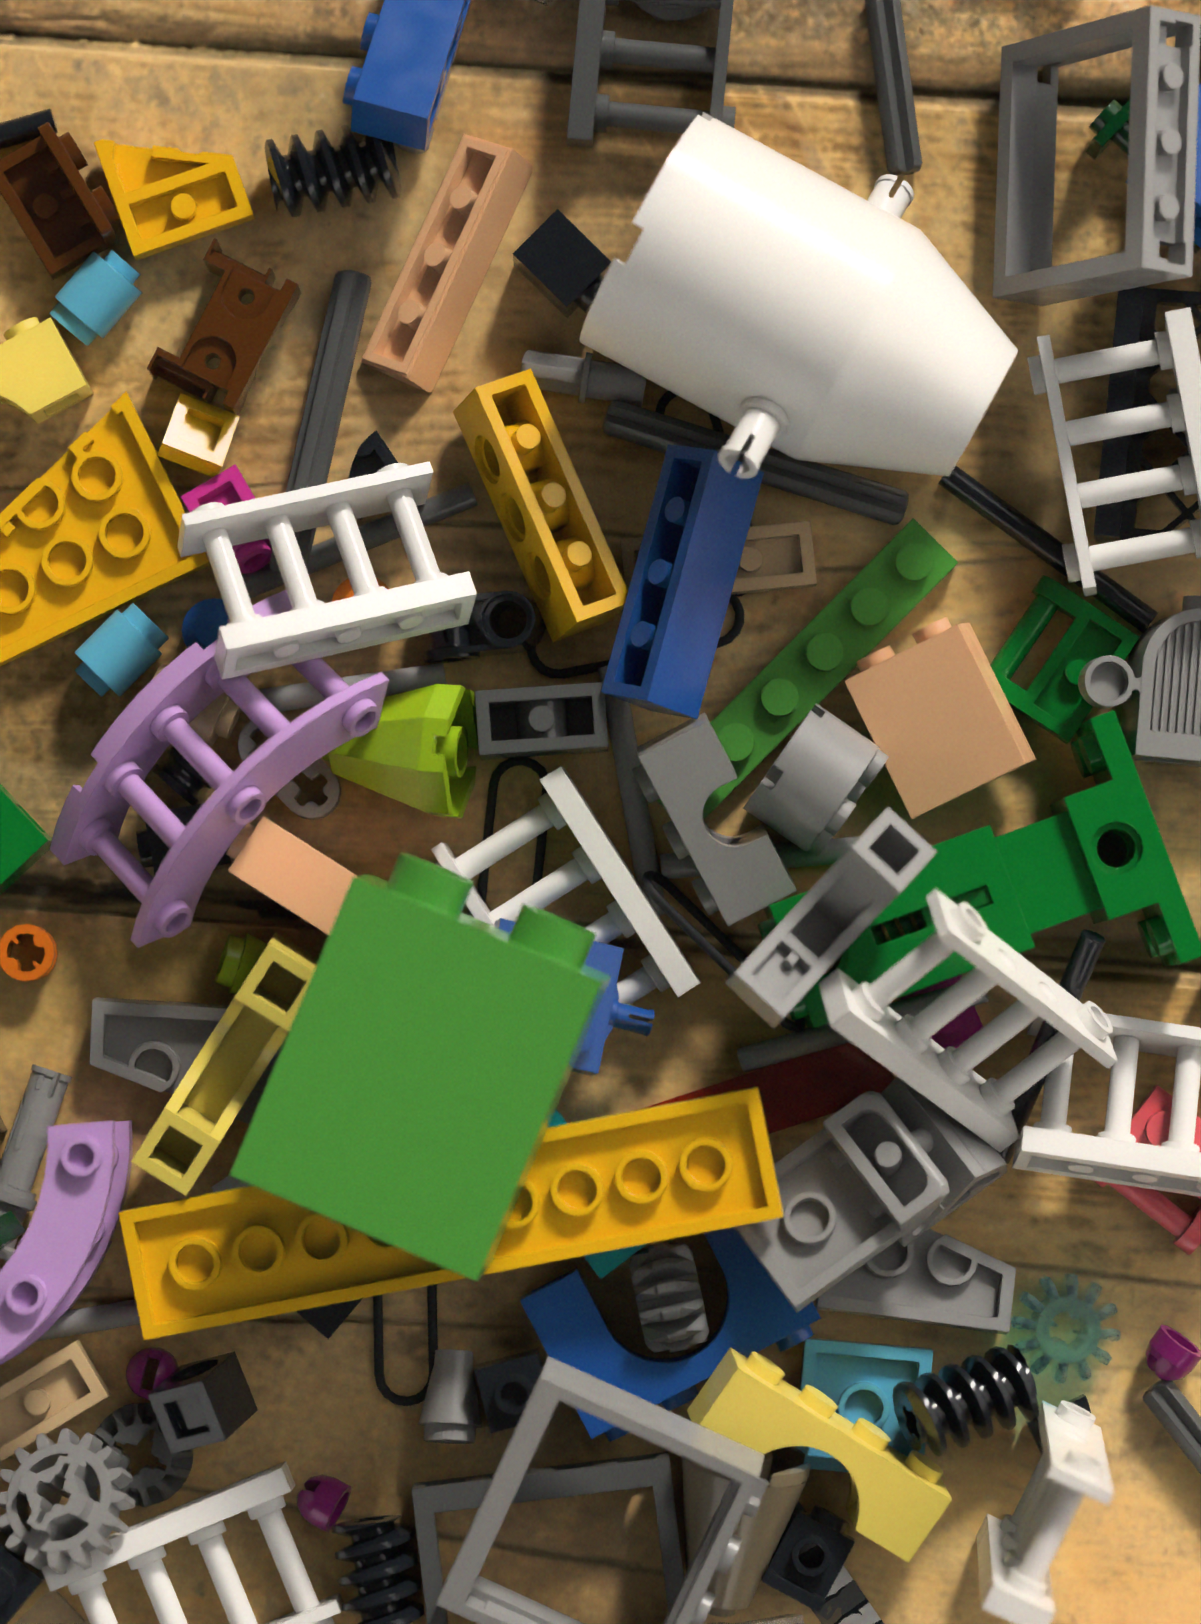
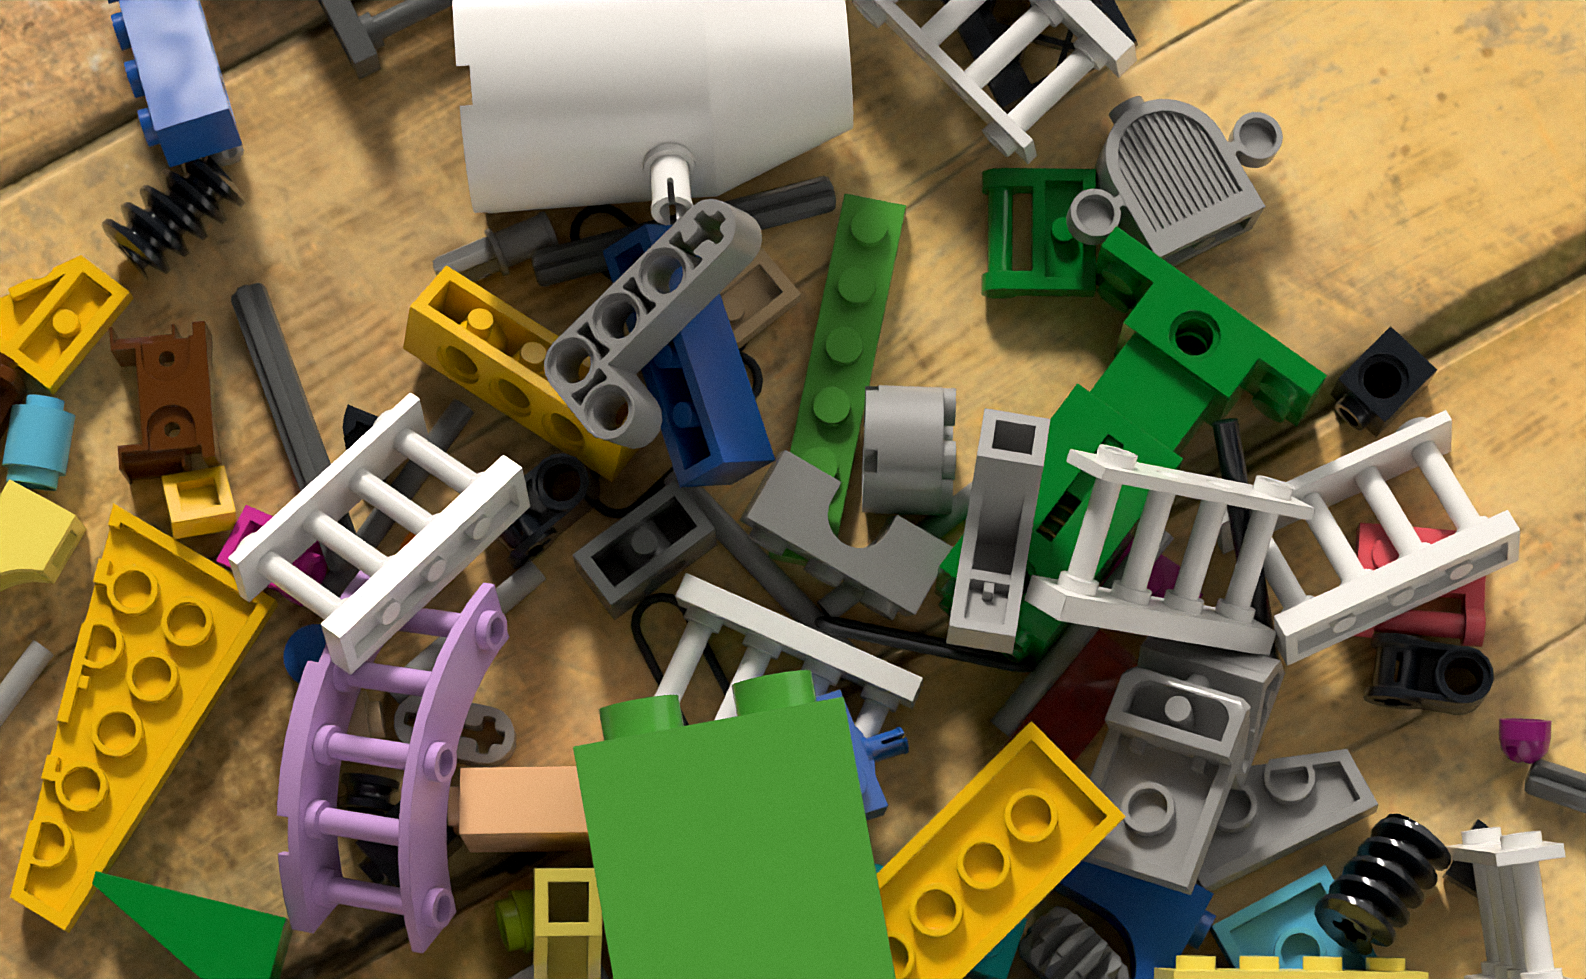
camera: 30 degrees left, 10 degrees down
(120, 651) = (246, 723): medium azure brick -> none
(417, 750) = (553, 643): lime cone -> none
(448, 262) = (320, 233): light nougat slope -> none
(562, 264) = (419, 171): black brick -> none
(671, 541) = (659, 319): none -> light grey beam
(938, 716) = (973, 333): light nougat brick -> none
(1043, 545) = (965, 149): black bar -> none
(1074, 1308) = (1411, 750): clear light blue gear -> none
(1122, 1247) = (1422, 675): none -> black piece

